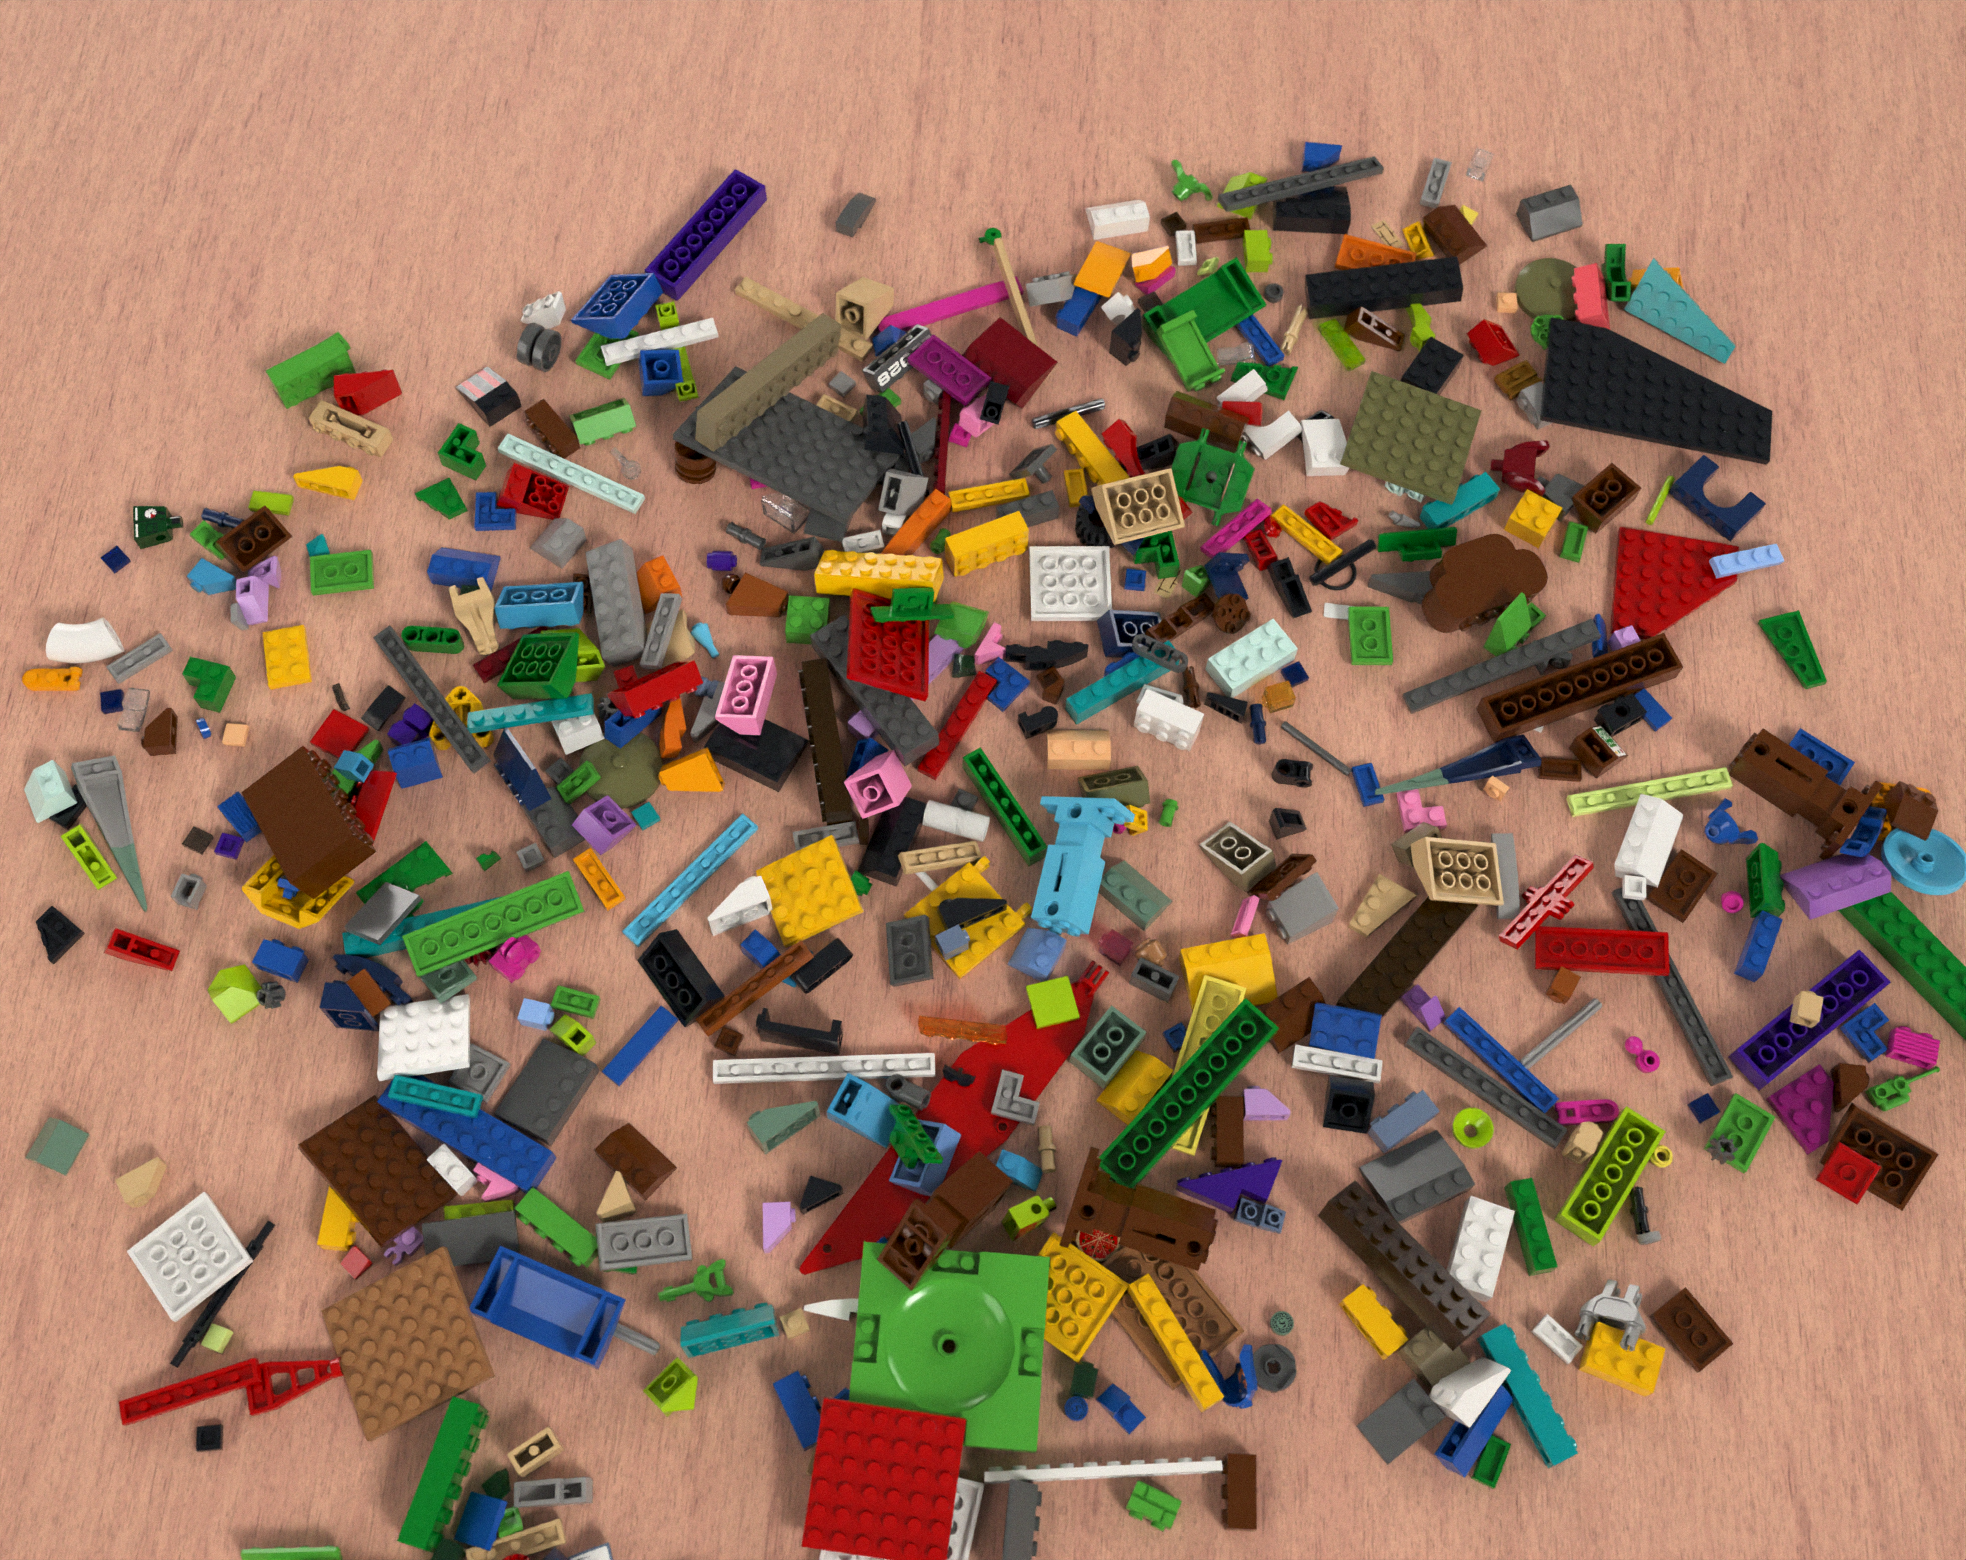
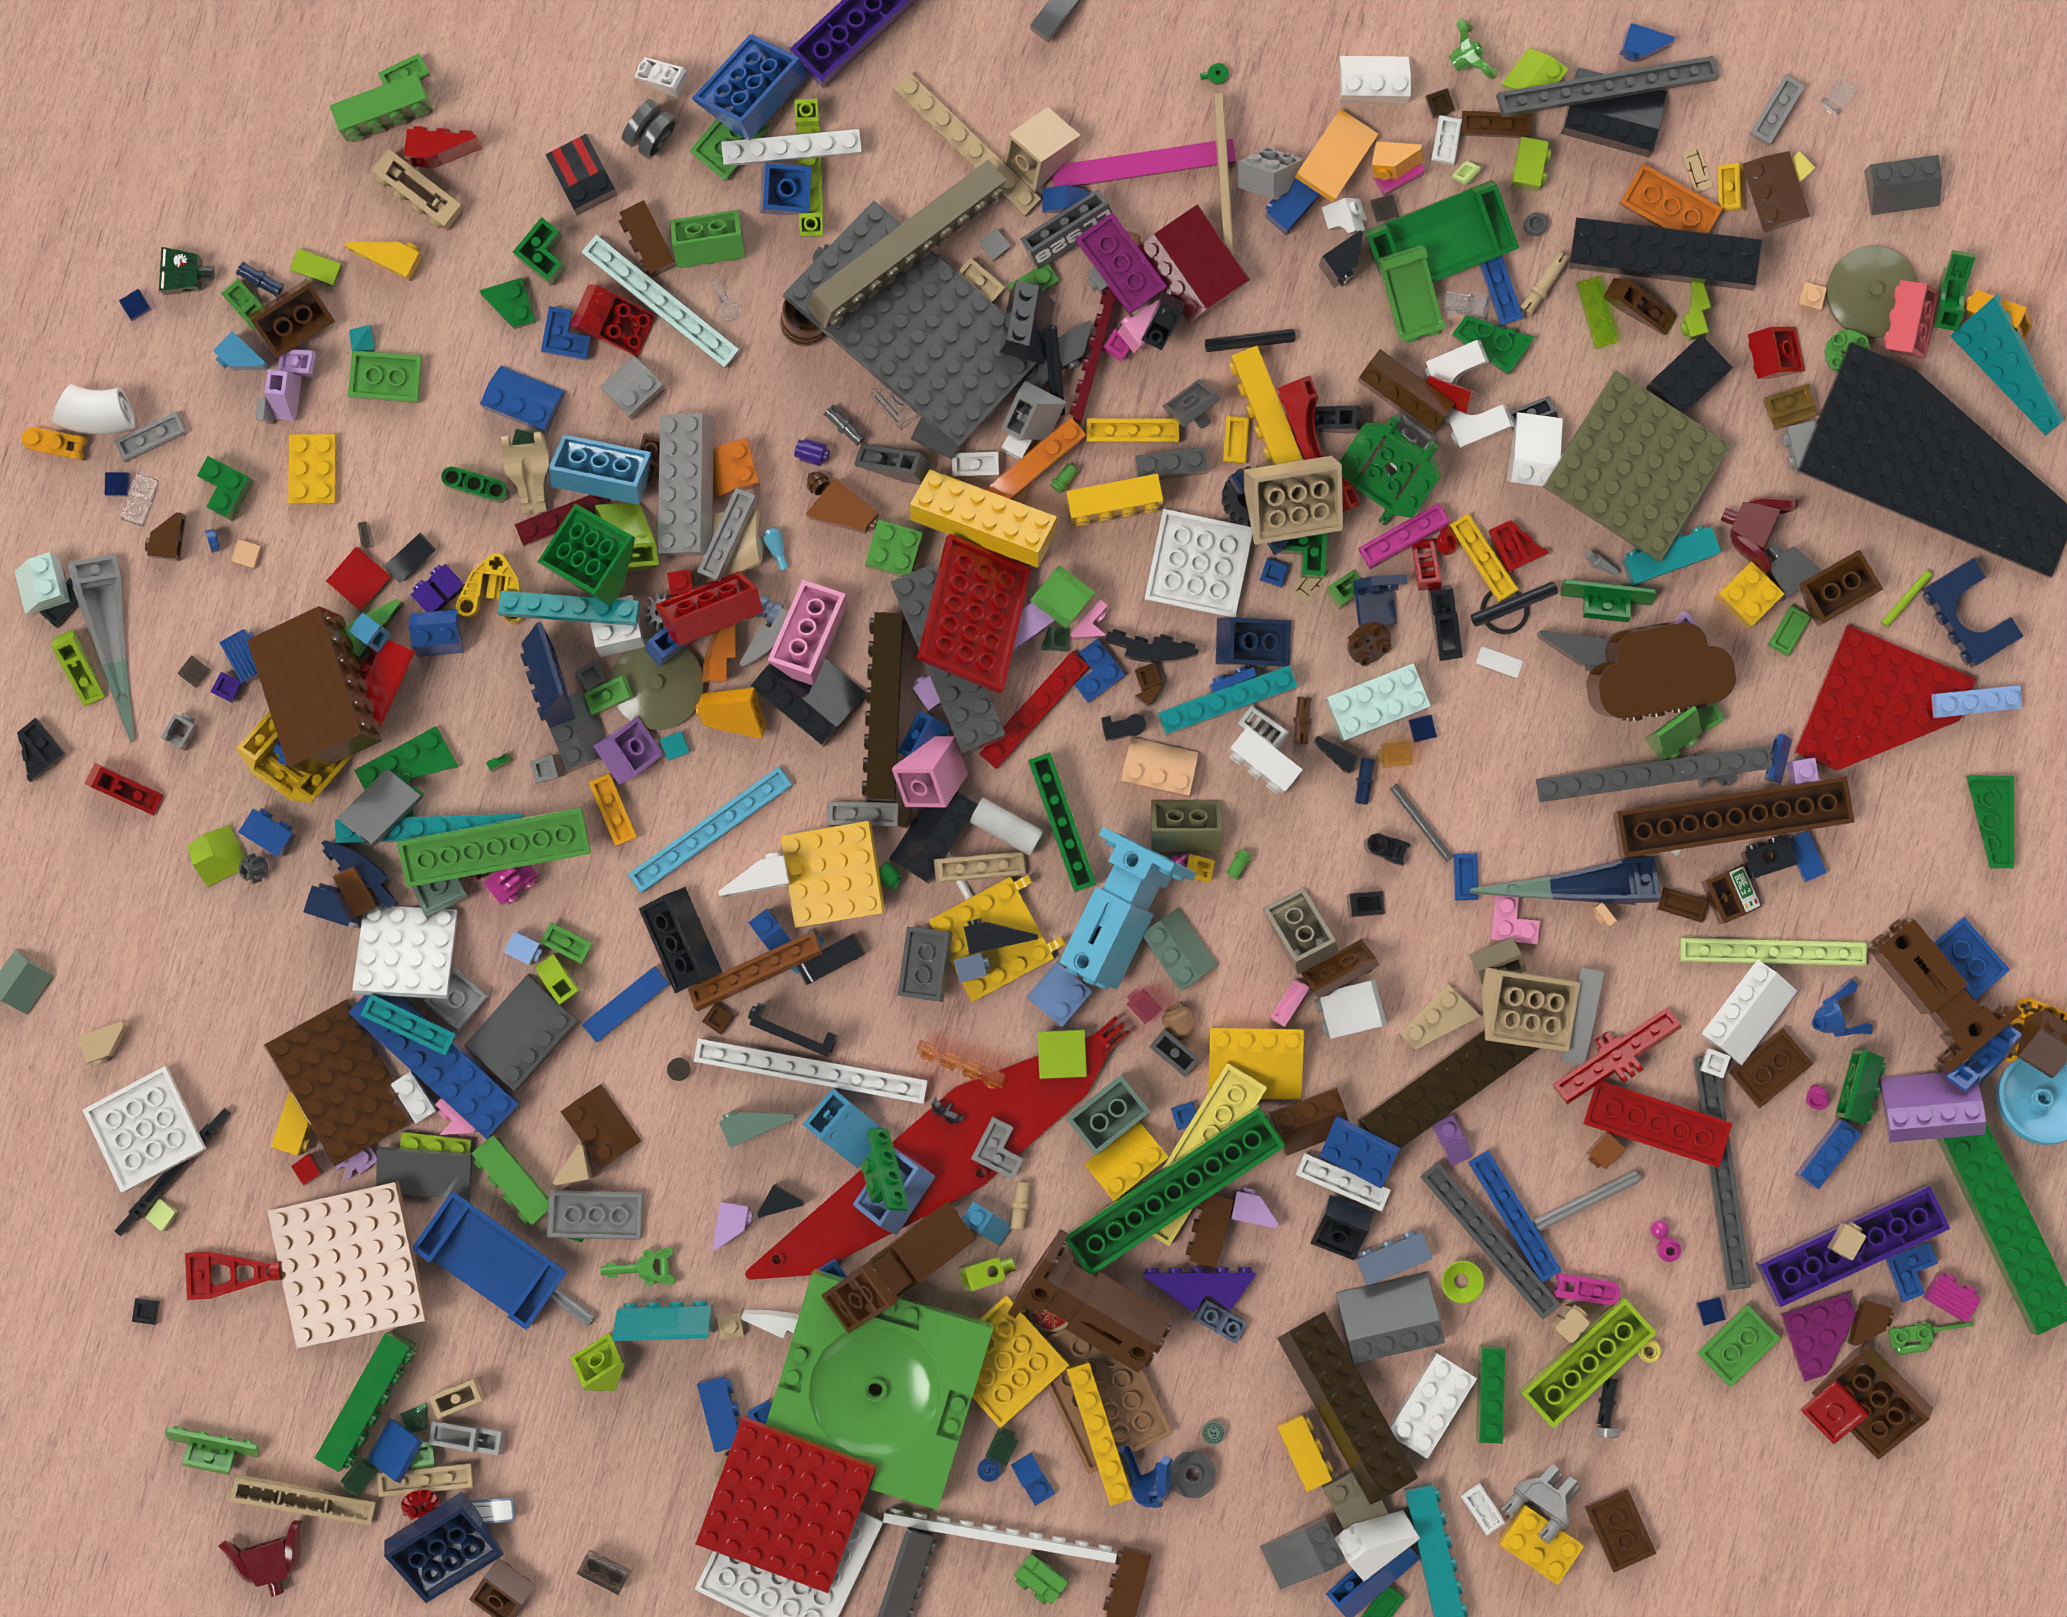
camera: 10 degrees right, 20 degrees up
(190, 1391) = (132, 1265): red plate -> none
(432, 699) = (463, 564): dark grey plate -> none
(700, 1094) = (678, 1069): none -> clear smoke tile
(908, 1092) = (891, 1119): dark grey piece -> none
(912, 605) = (1009, 573): green bracket -> none
(964, 800) = (1020, 803): dark grey plate -> none
(1176, 654) = (1255, 677): dark grey beam -> none
(1182, 619) = (1311, 638): reddish brown slope -> none
(1370, 636) = (1519, 701): bright green plate -> none
(1728, 1148) = (1717, 1363): dark grey gear -> none

